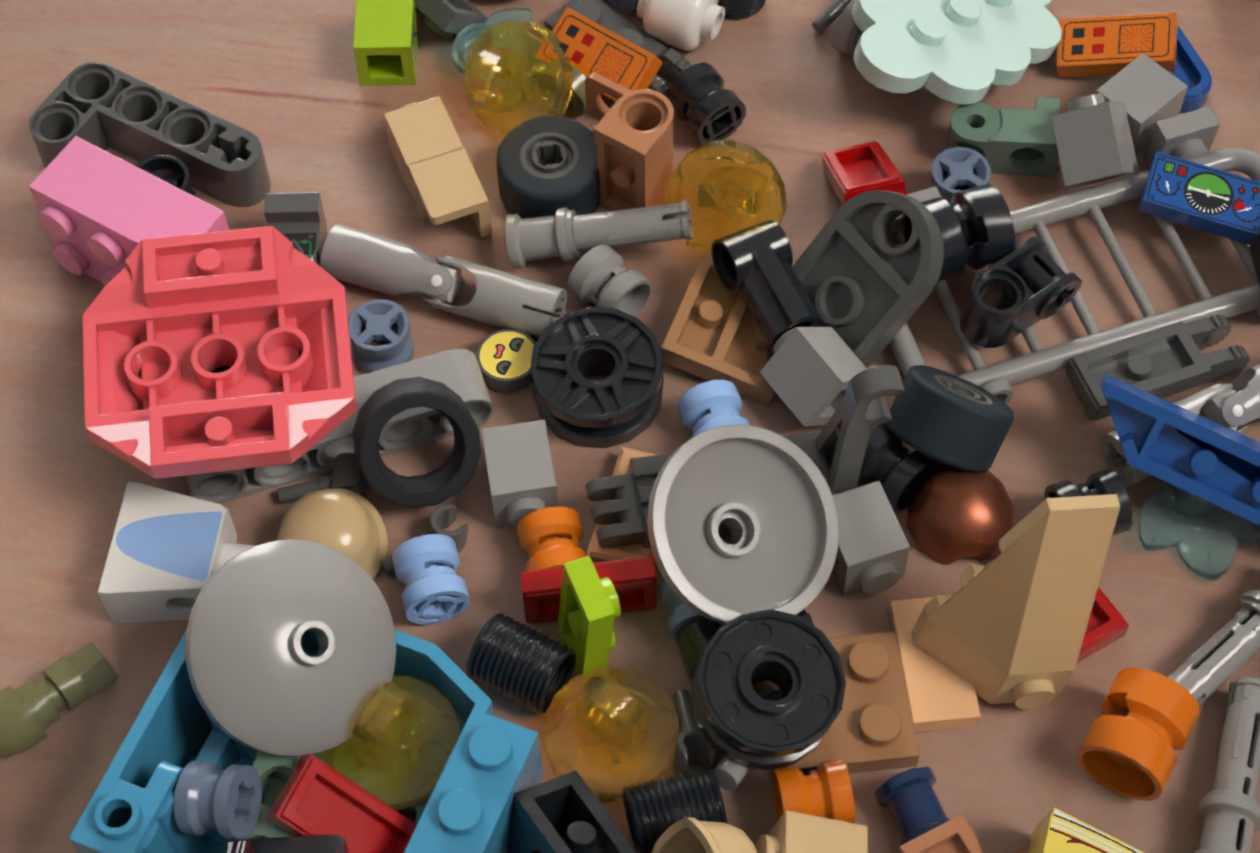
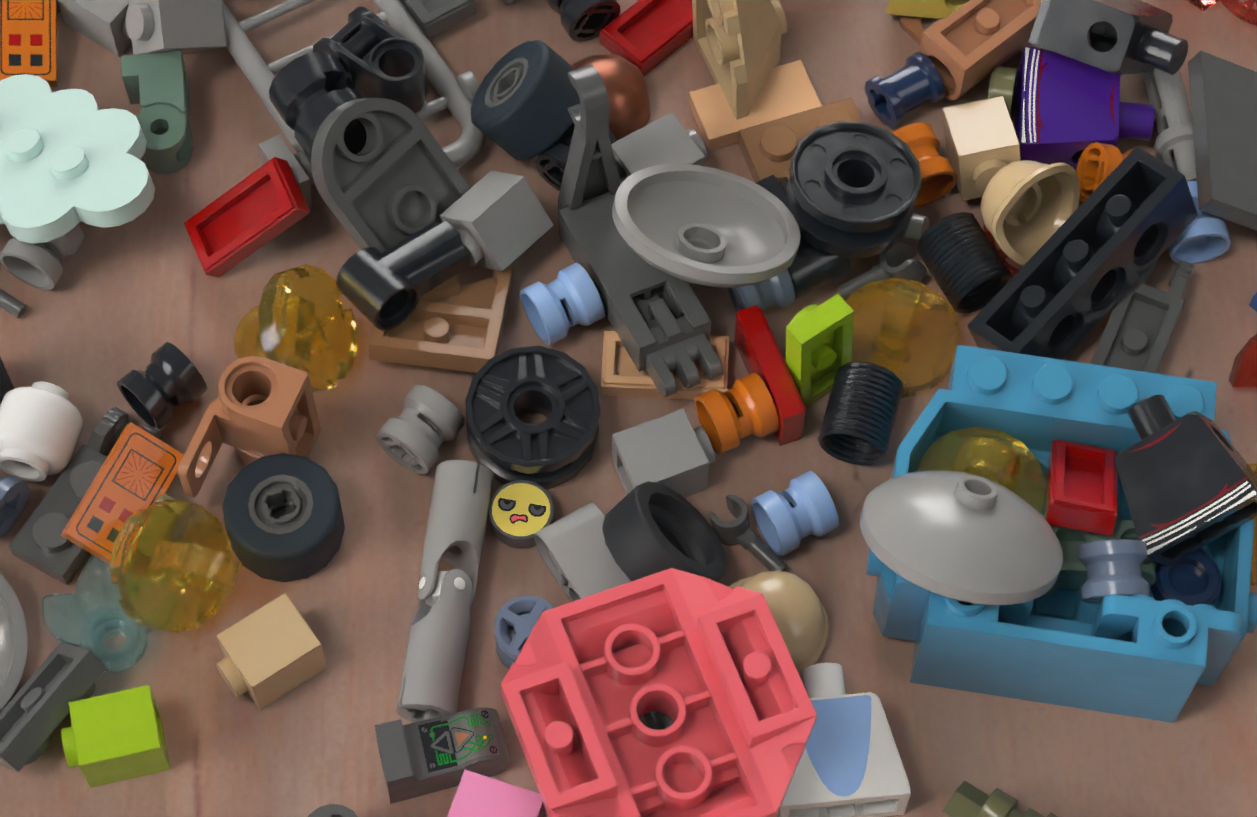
camera: 105 degrees left, 5 degrees up
(450, 189) = (337, 602): tan panel -> none
(569, 233) = (366, 475): light grey pin -> none
(958, 169) = (223, 130): sand blue wheel -> none

